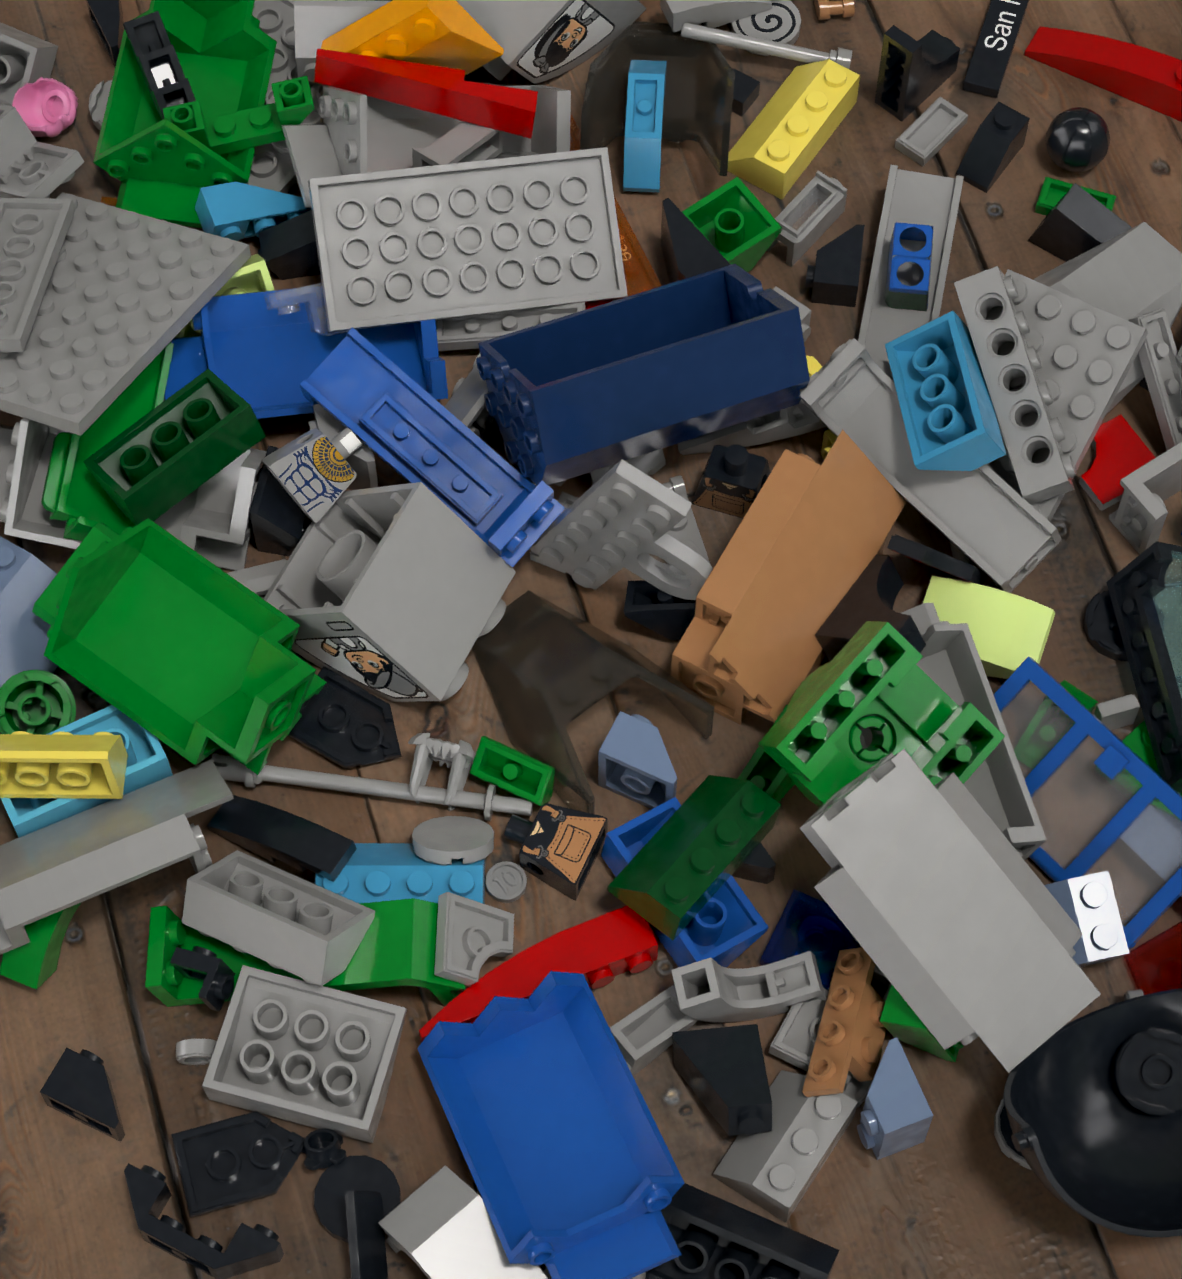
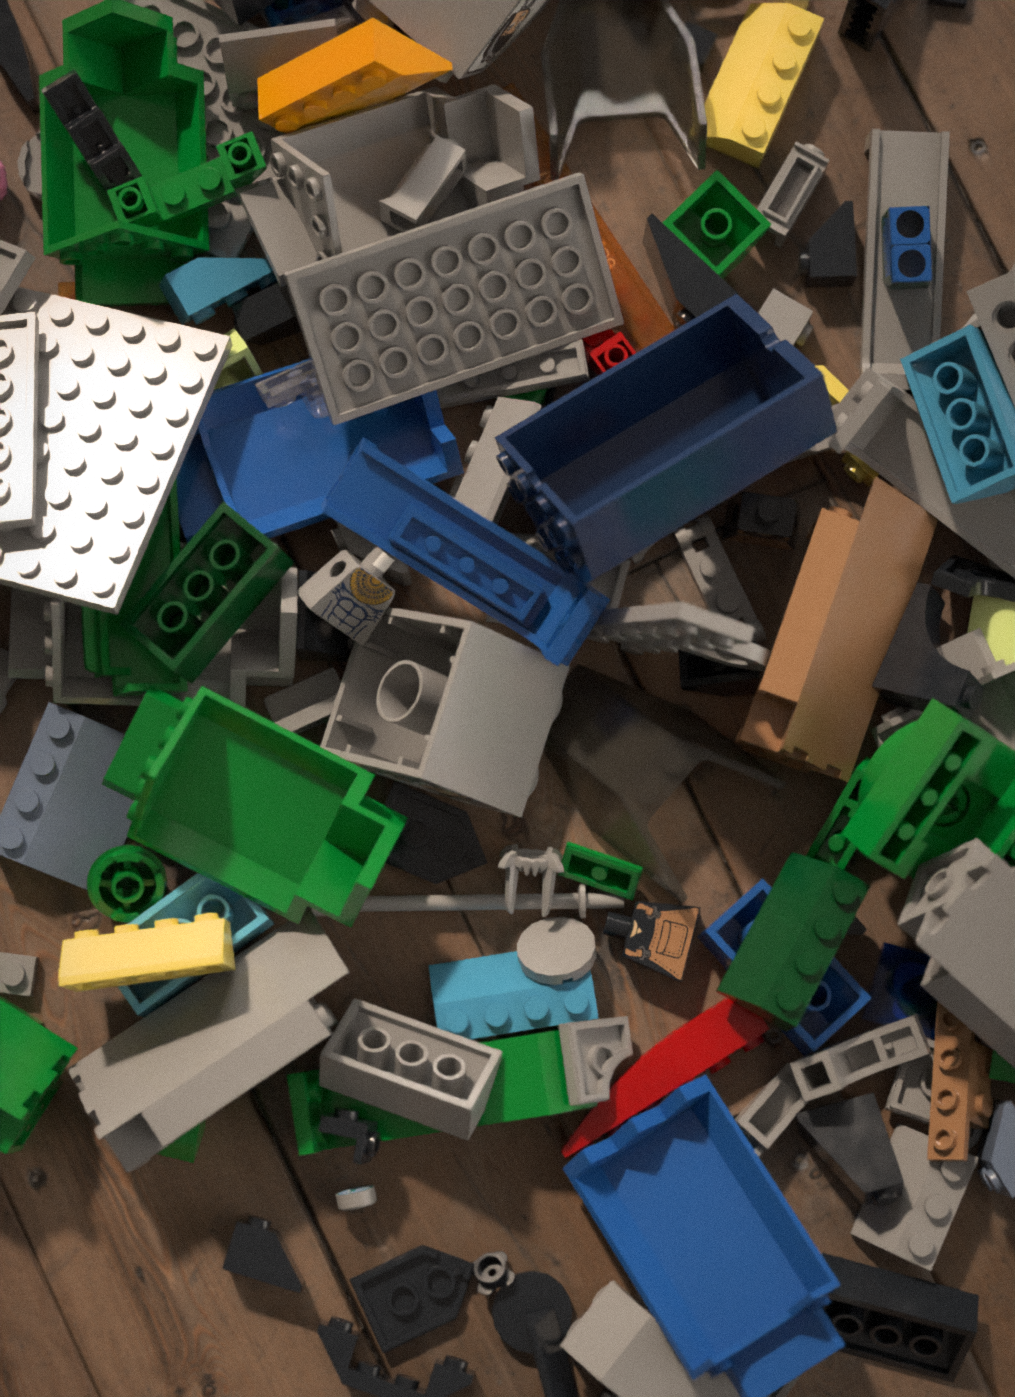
camera: 10 degrees left, 20 degrees up
(282, 836) = (400, 976): black slope -> none
(305, 1054) = (461, 1193): light grey slope -> none
(430, 89) = (387, 129): red slope -> none
(506, 882) = (611, 975): light grey piece -> none
(636, 762) = (721, 845): sand blue slope -> none
(644, 125) = (607, 106): dark azure slope -> none
(931, 131) = (902, 62): light grey tile -> none
(993, 146) = (970, 78): black slope -> none

